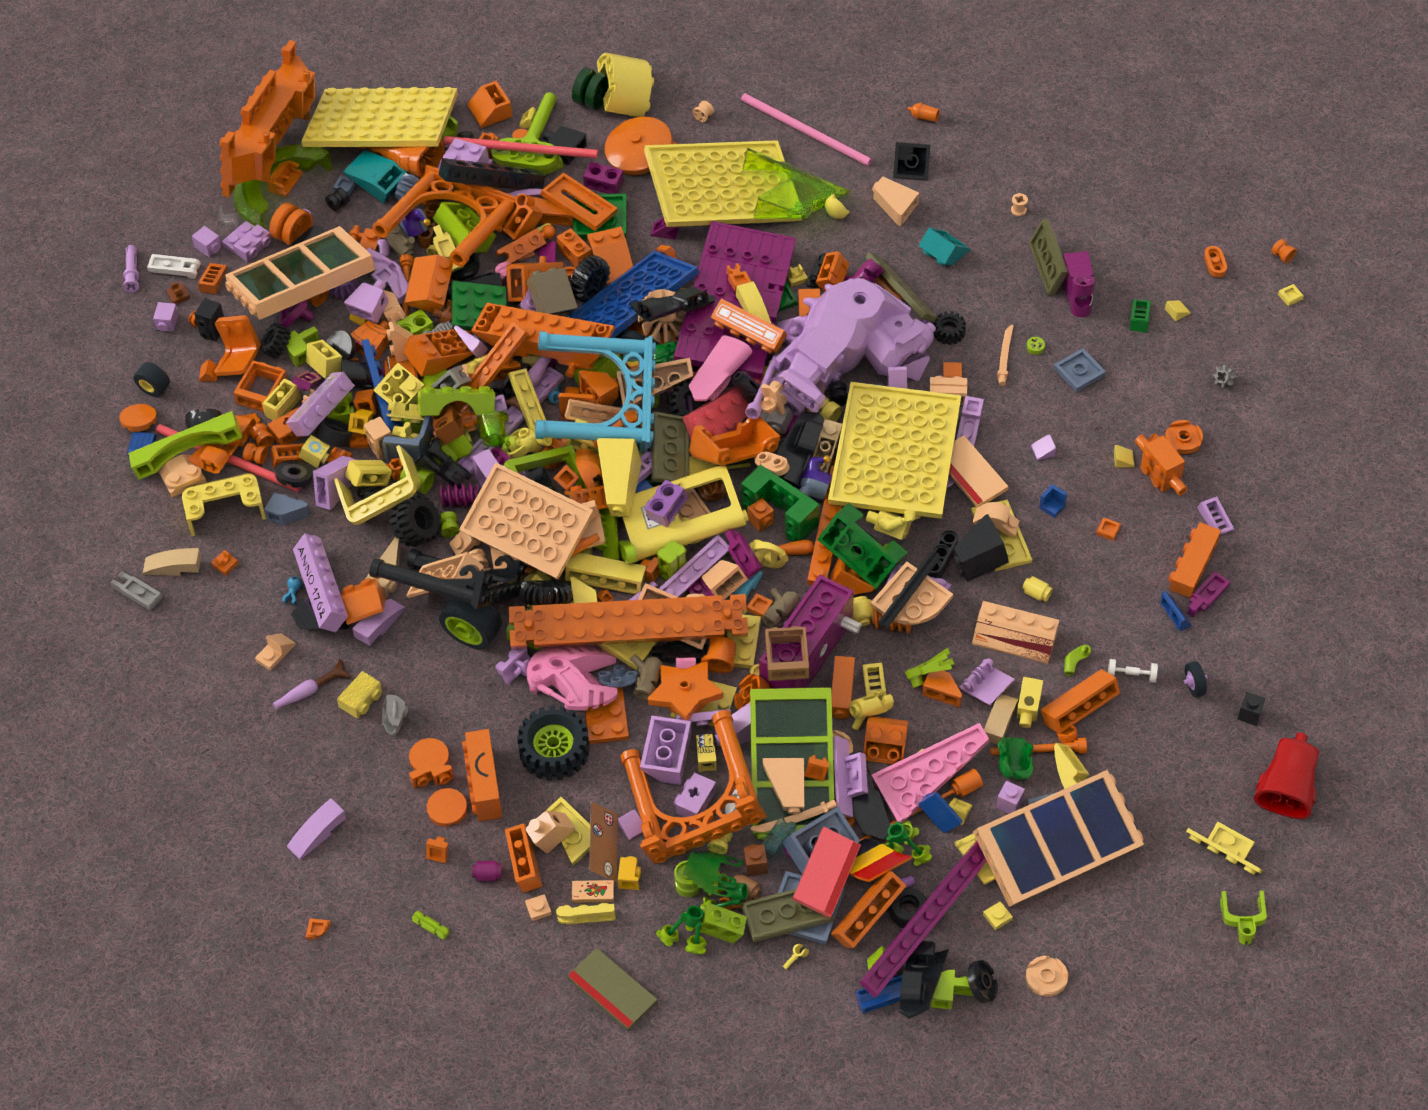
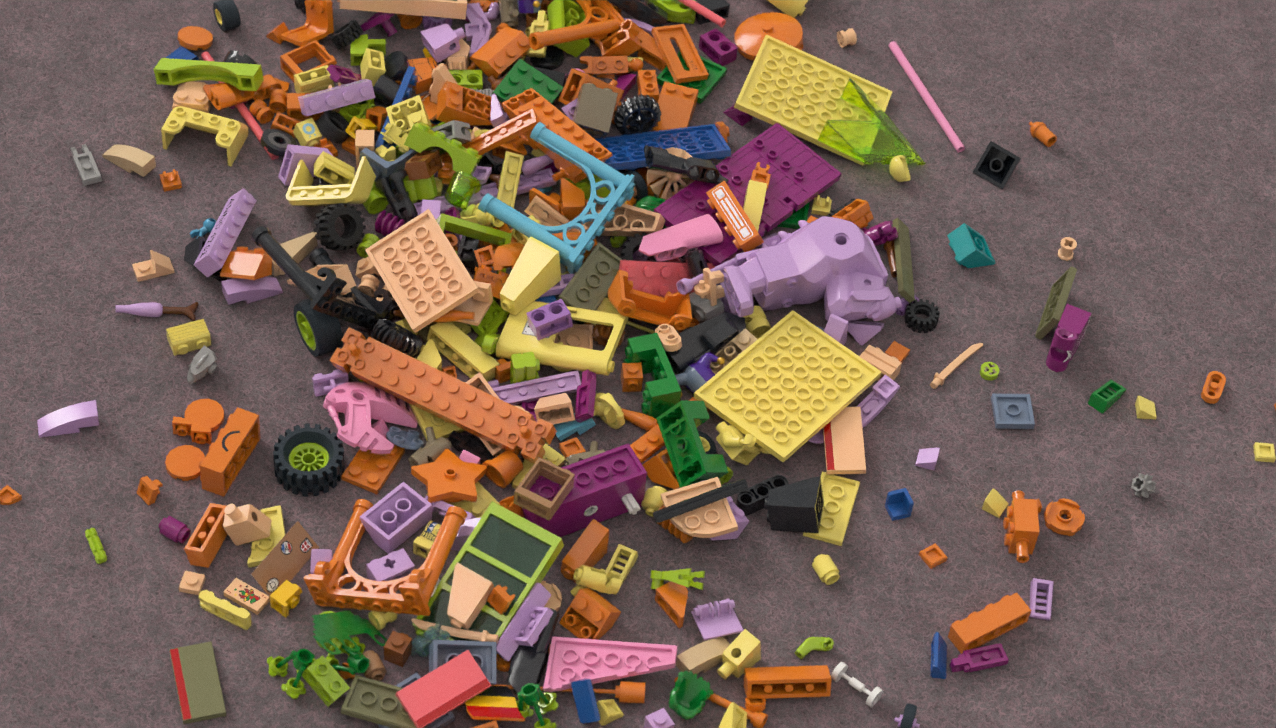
camera: 25 degrees right, 5 degrees down
(285, 510) = (249, 166): sand blue slope -> none
(838, 392) = (779, 313): black wheel -> none
(895, 199) = (958, 189): light nougat slope -> none
(1000, 517) = (835, 489): light nougat brick -> none
(1015, 632) = (777, 593): light nougat slope -> none

